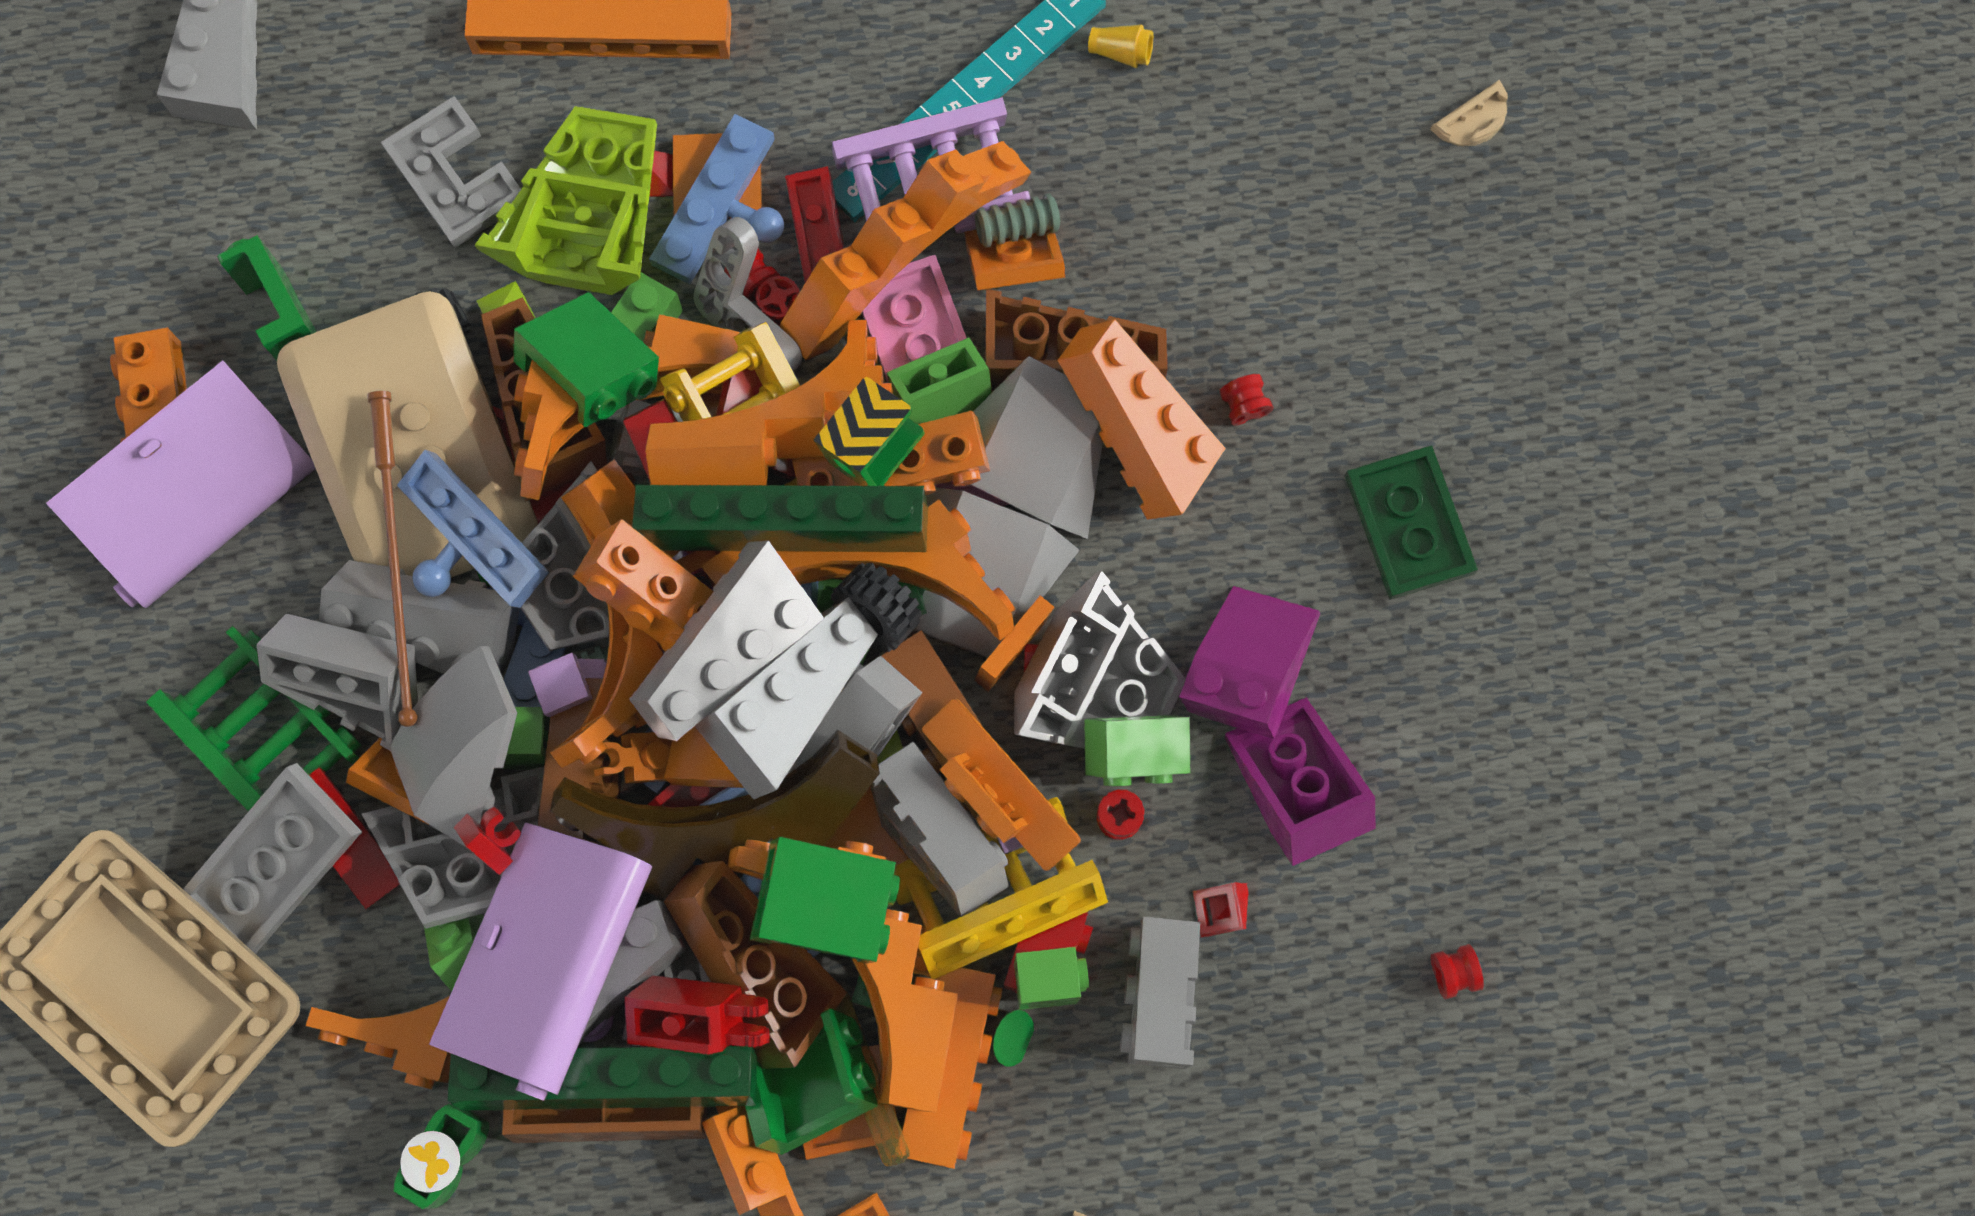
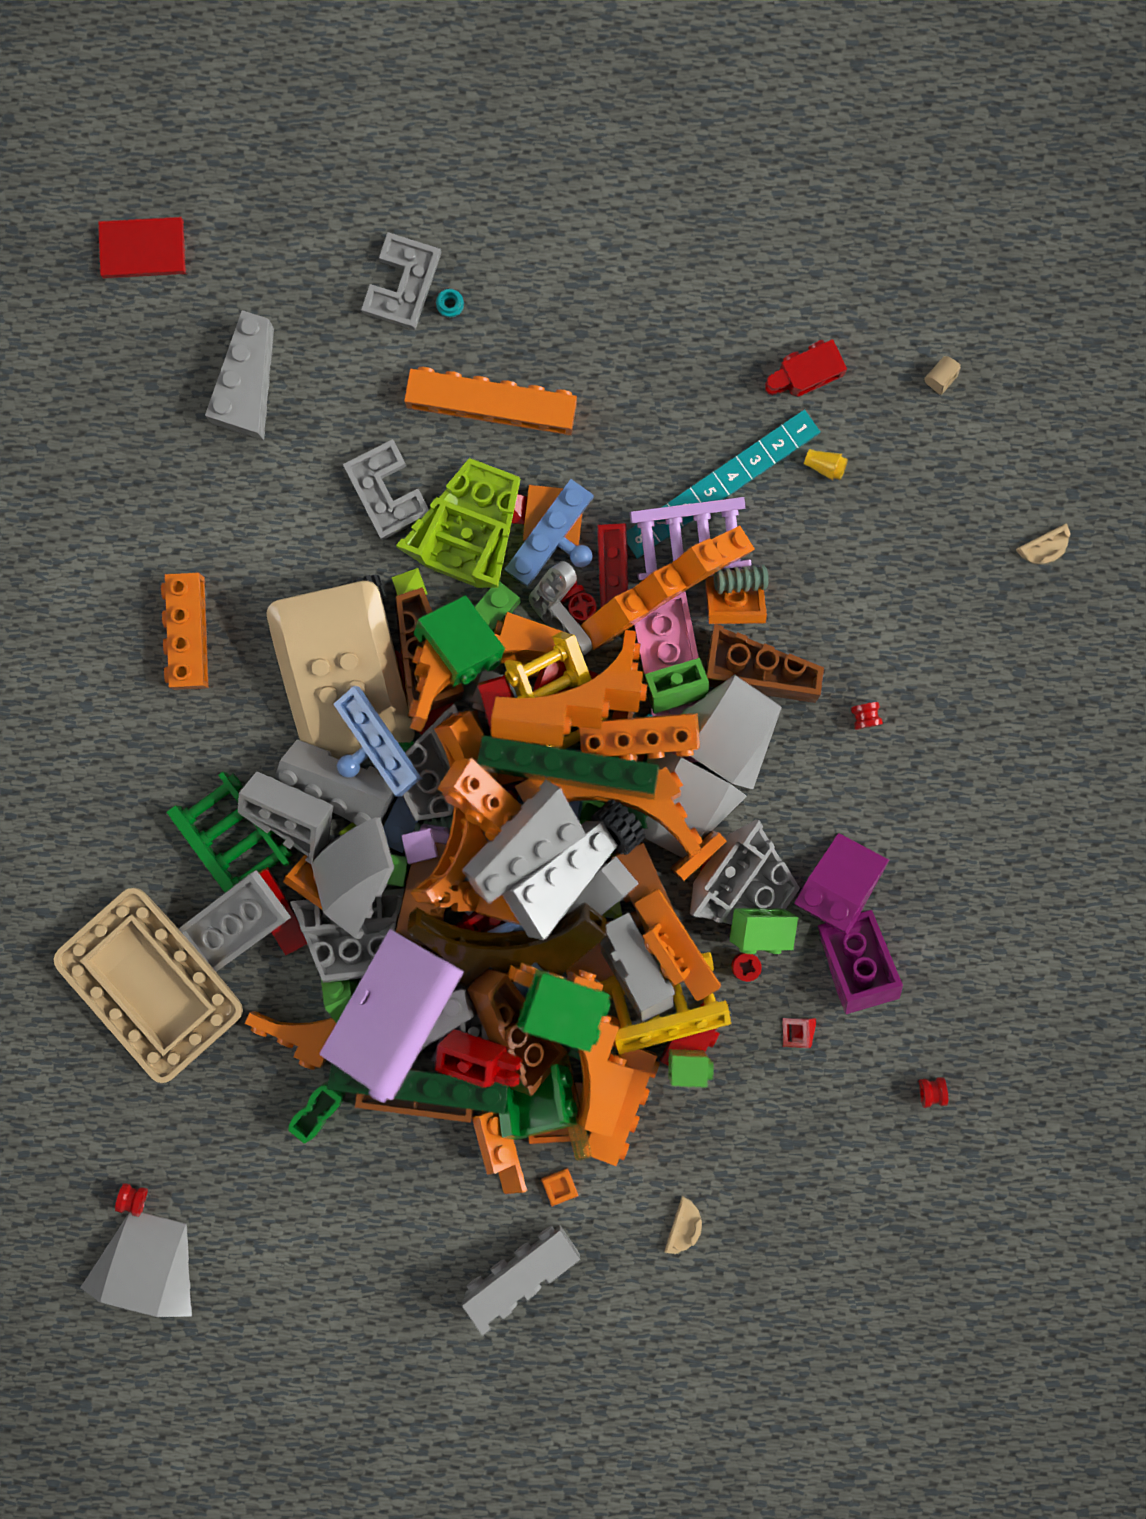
camera: 10 degrees right, 10 degrees up
(210, 478) = (199, 677): lavender door -> none
(253, 267) = (254, 538): green panel -> none
(385, 463) = (328, 691): dark orange piece -> none
(430, 1161) = (311, 1116): white sticker -> none
(487, 843) = (365, 937): red tile -> none
(869, 434) = (630, 724): piece -> none
(1012, 1037) = (660, 1092): green sticker -> none
(1142, 417) = (800, 726): orange wedge -> none
(1162, 993) = (754, 1080): light grey wedge -> none
(1411, 522) = (956, 809): dark green plate -> none

